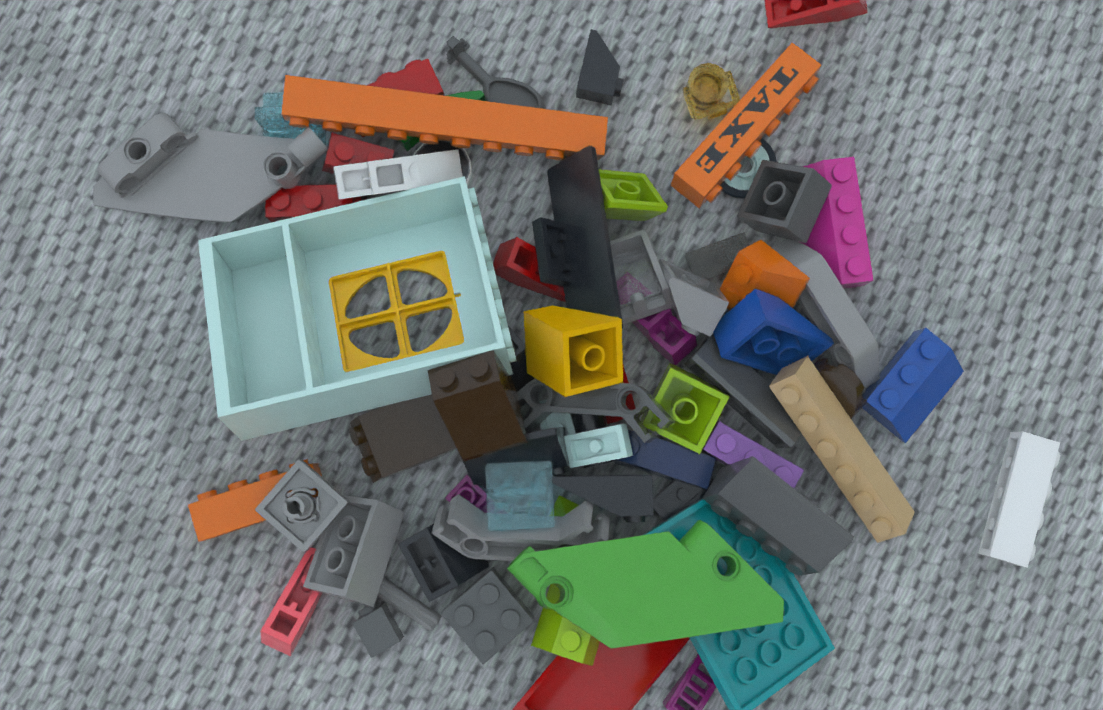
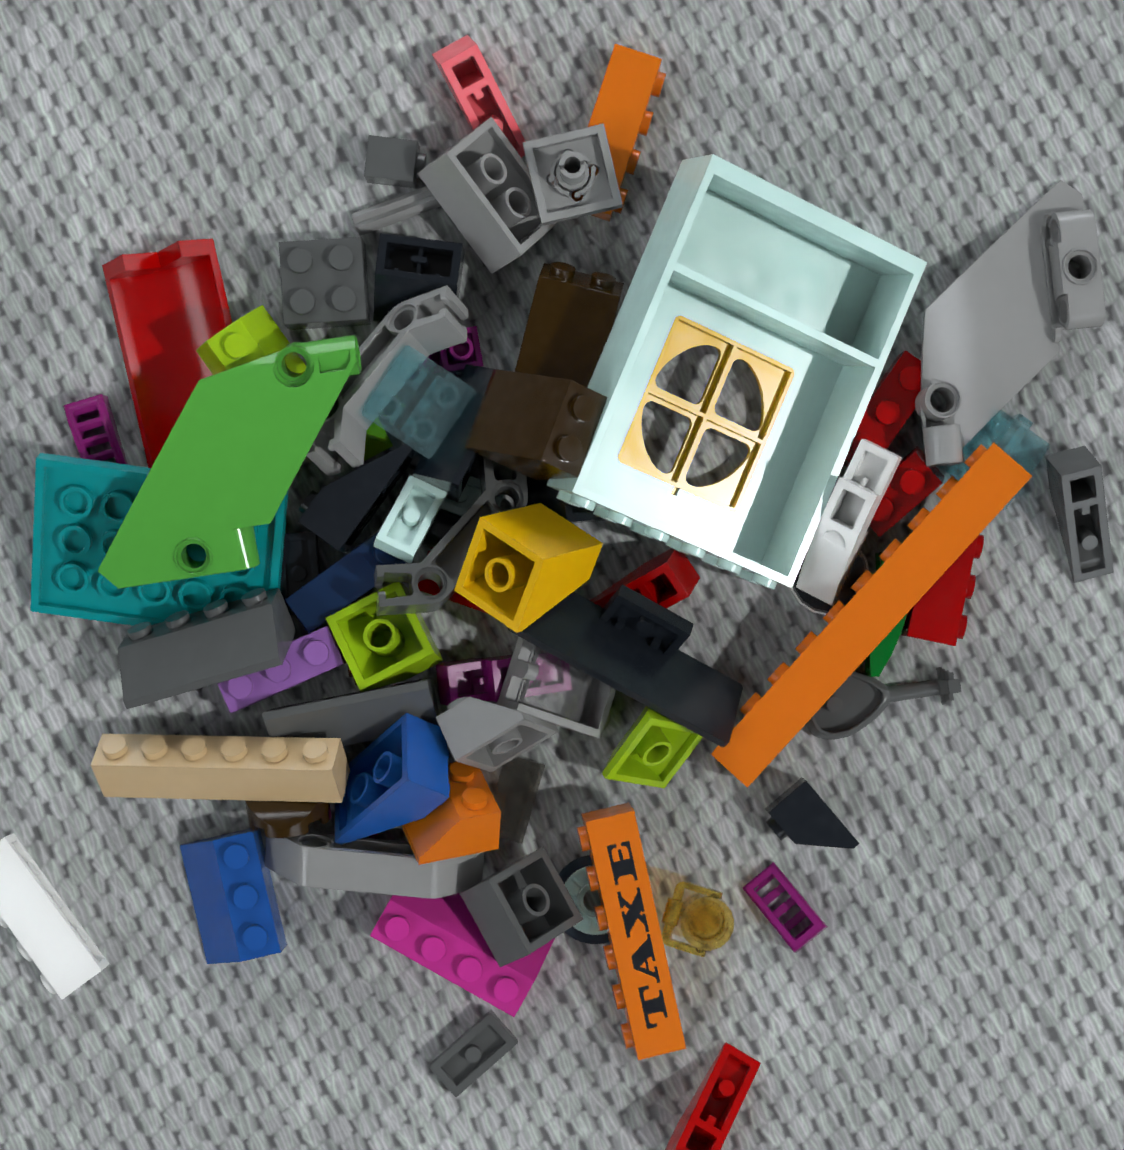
camera: 135 degrees right, 5 degrees up
(289, 46) = (1081, 511): none -> dark grey slope
(669, 25) = (809, 933): none -> magenta slope
(891, 169) = (473, 1053): none -> dark grey plate

